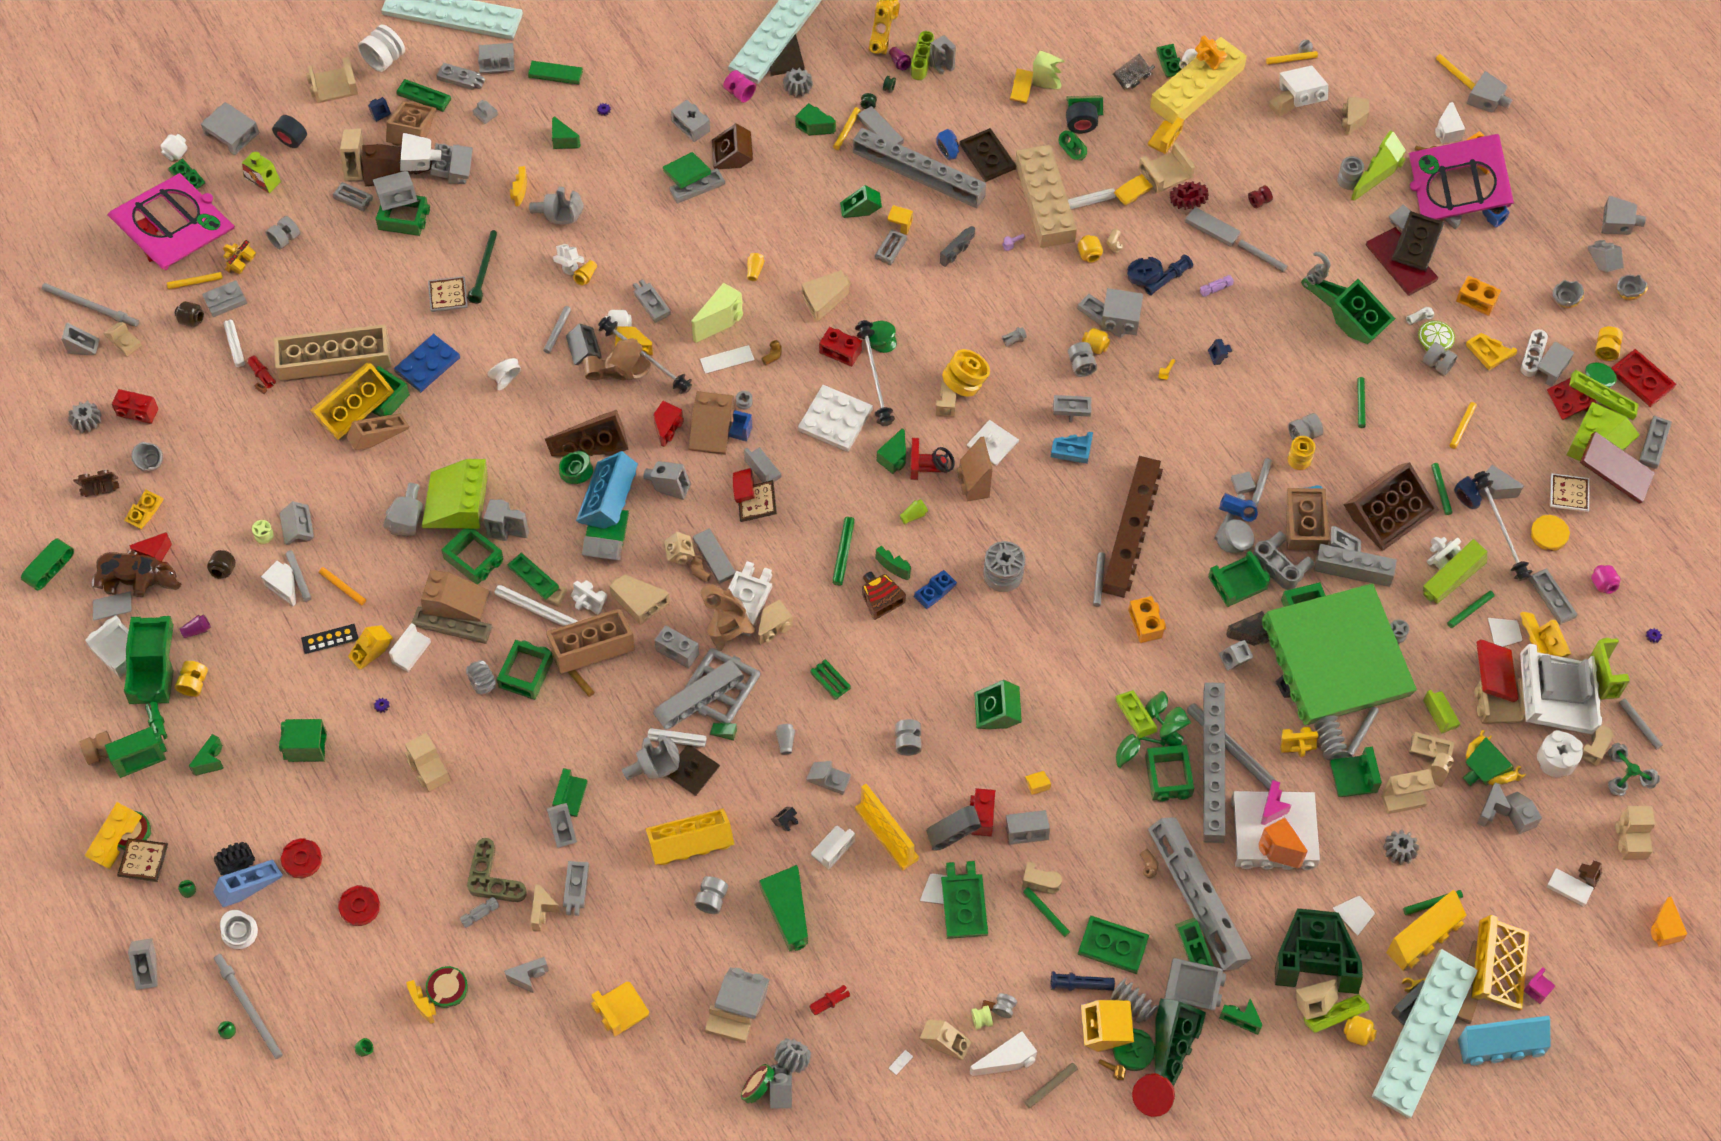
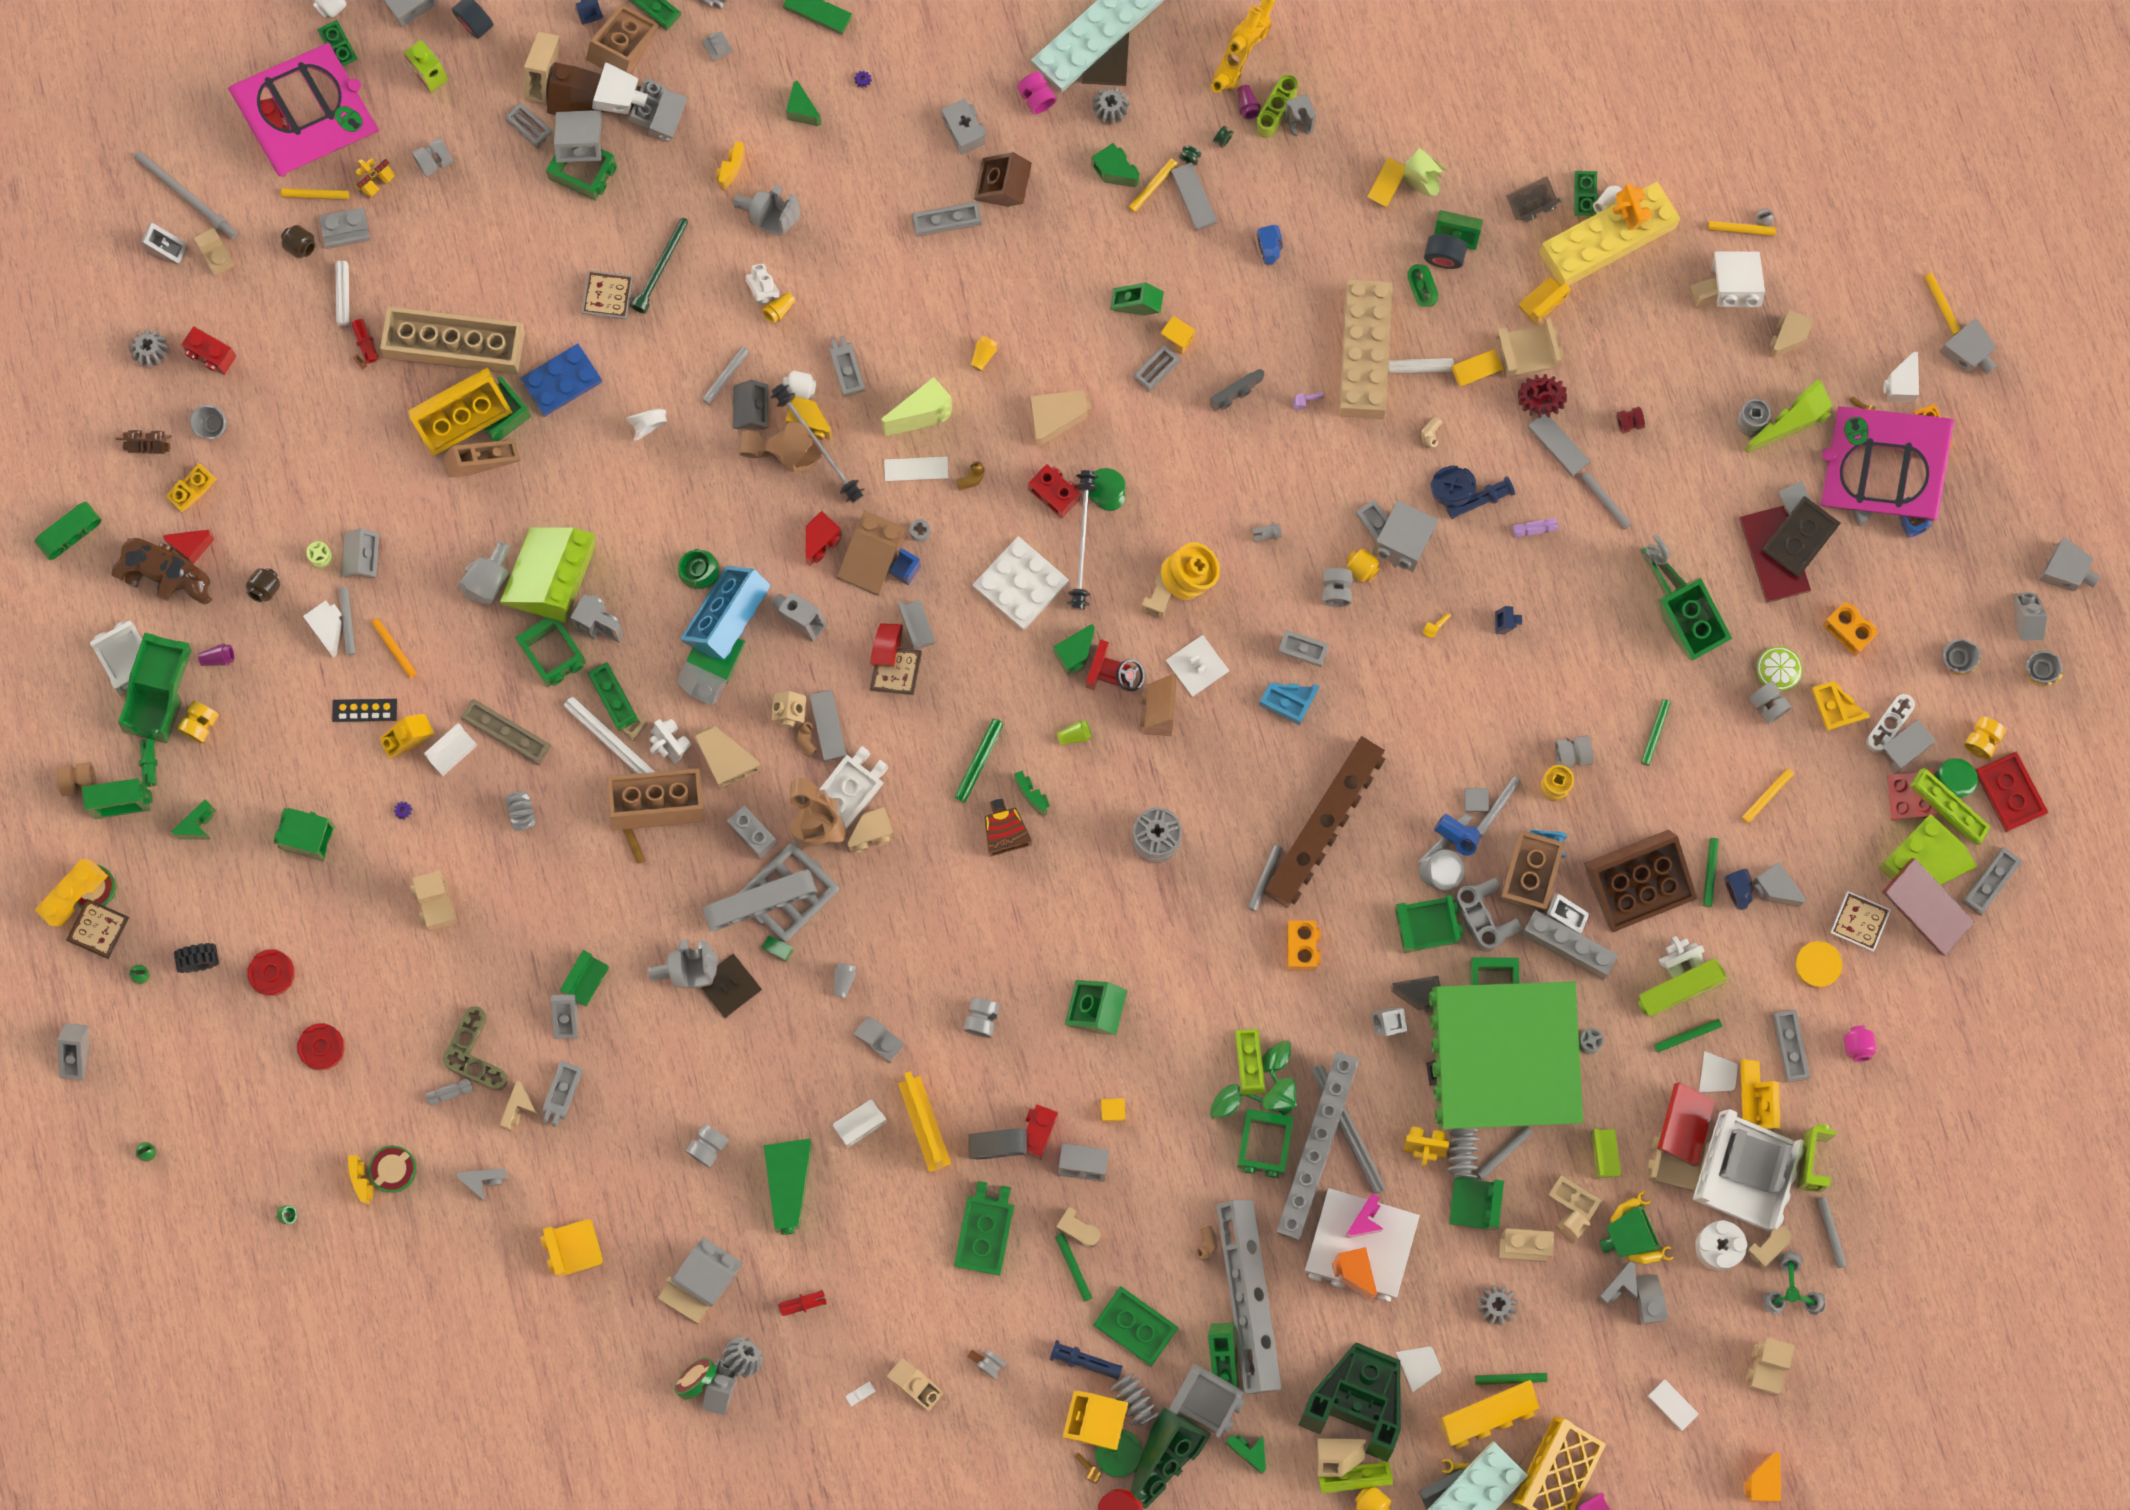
camera: 15 degrees right, 15 degrees up
(111, 605) = (129, 604): light grey piece -> none
(228, 974) = (161, 1087): light grey bar -> none
(238, 929) = (183, 1039): white piece -> none
(245, 882) = (204, 987): medium blue slope -> none
(453, 597) = (515, 700): medium nougat slope -> none
(519, 686) = (561, 832): green window -> none
(595, 436) = (733, 533): reddish brown wedge -> none
(678, 737) = (722, 943): white axle -> none
(687, 170) = (939, 196): green tile -> none
(690, 836) = (702, 1067): yellow slope -> none
(784, 817) = (814, 1074): black tile -> none
(820, 667) = (908, 900): green tile -> none
(919, 167) = (1223, 268): light grey piece -> none
(933, 889) = (956, 1204): white sticker -> none
(935, 589) = (1070, 839): blue slope -> none
(982, 1017) = (962, 1370): yellowish green wheel -> none
(987, 155) = (1315, 269): dark brown tile -> none
(1008, 1057) = (979, 1423): white slope -> none
(1051, 1085) = (1015, 1467): dark tan bar -> none
(1090, 248) = (1396, 436): yellow head -> none
(1426, 312) = (1777, 635): white arm -> none
(1483, 484) = (1763, 1002): black axle -> none
(1591, 873) = (1702, 1397): reddish brown tile -> none
(1651, 632) = (1891, 1132): dark purple piece -> none

